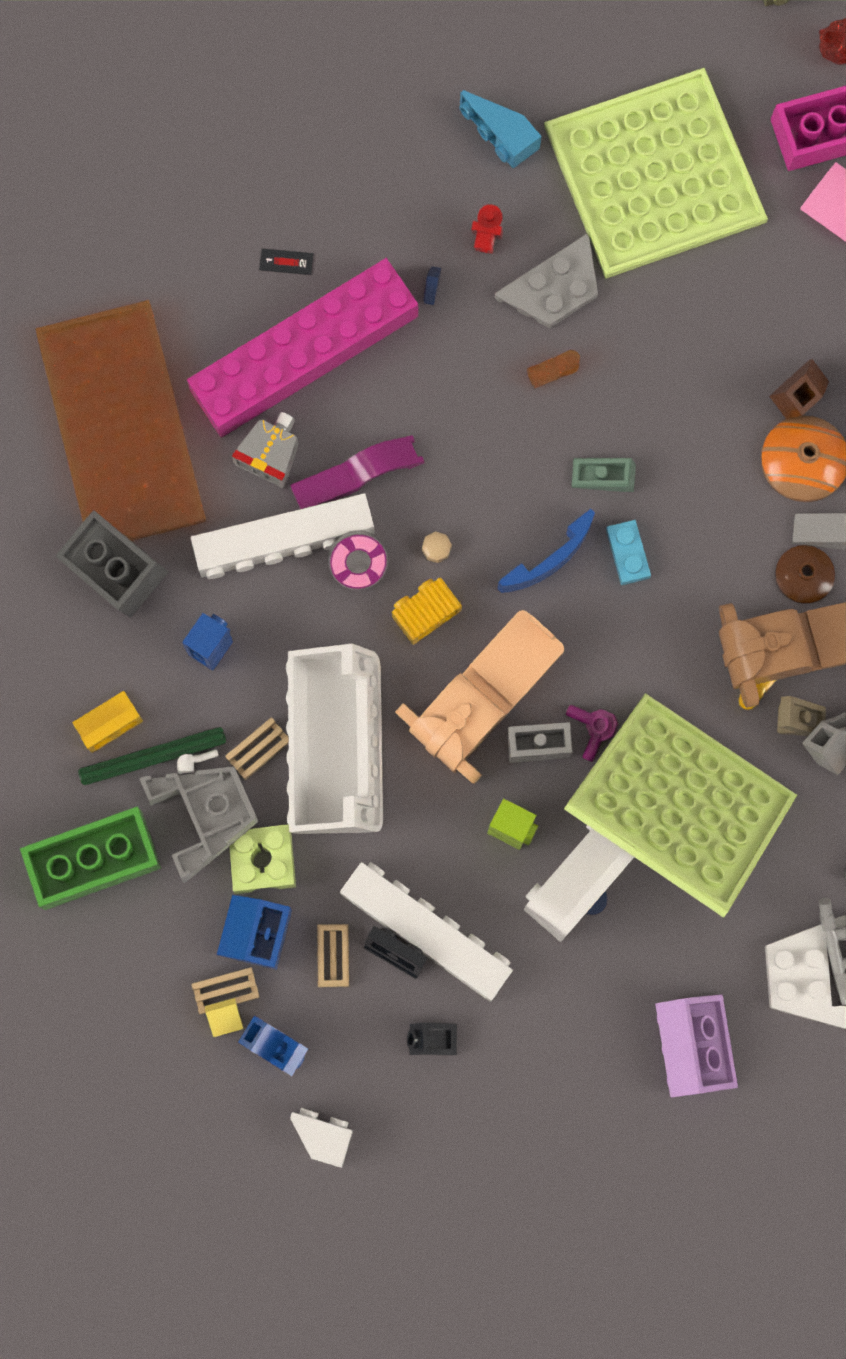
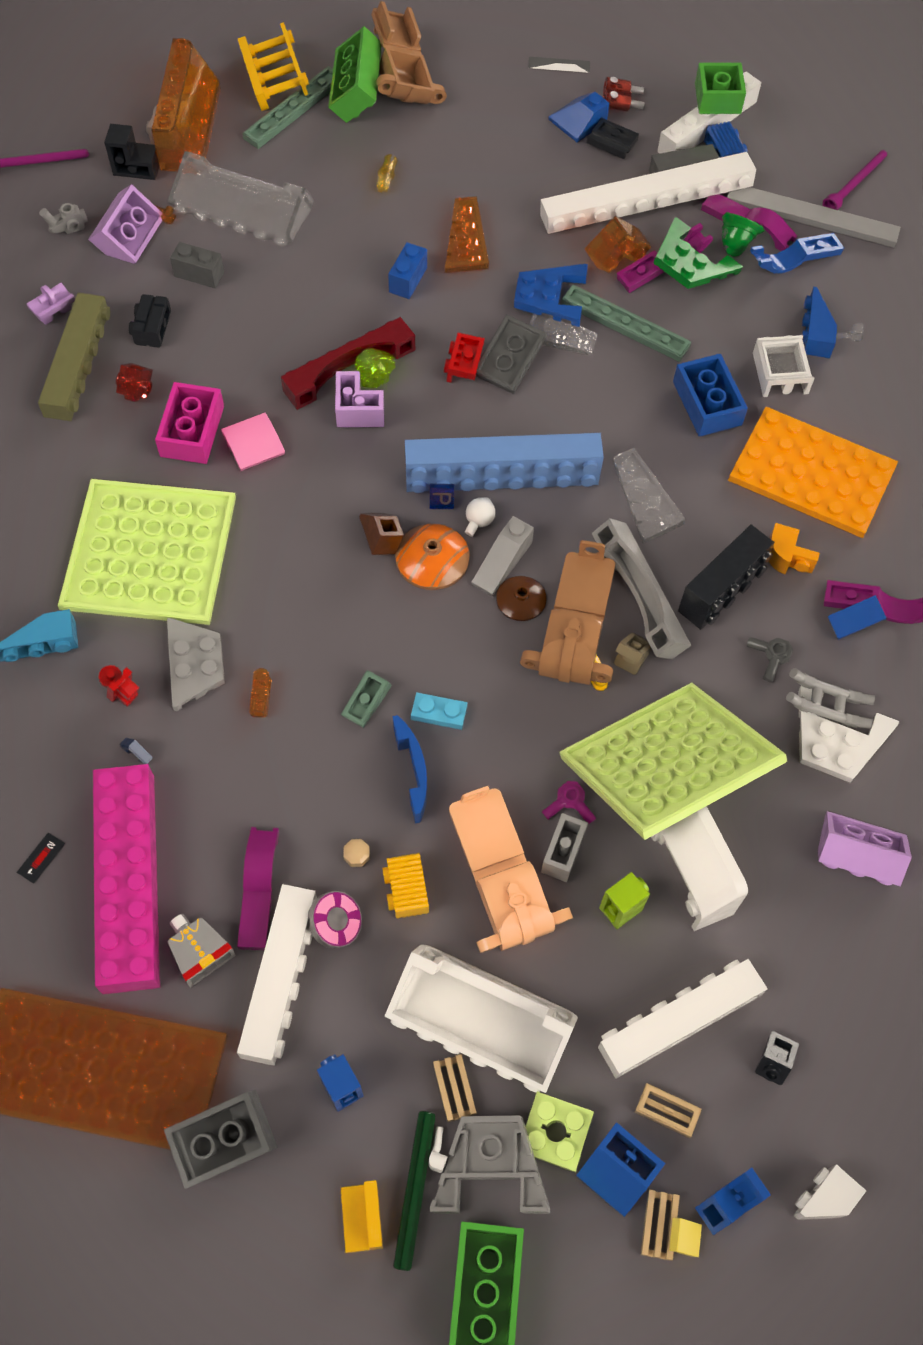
camera: 65 degrees left, 15 degrees down
(403, 957) = (685, 1055): black plate -> none

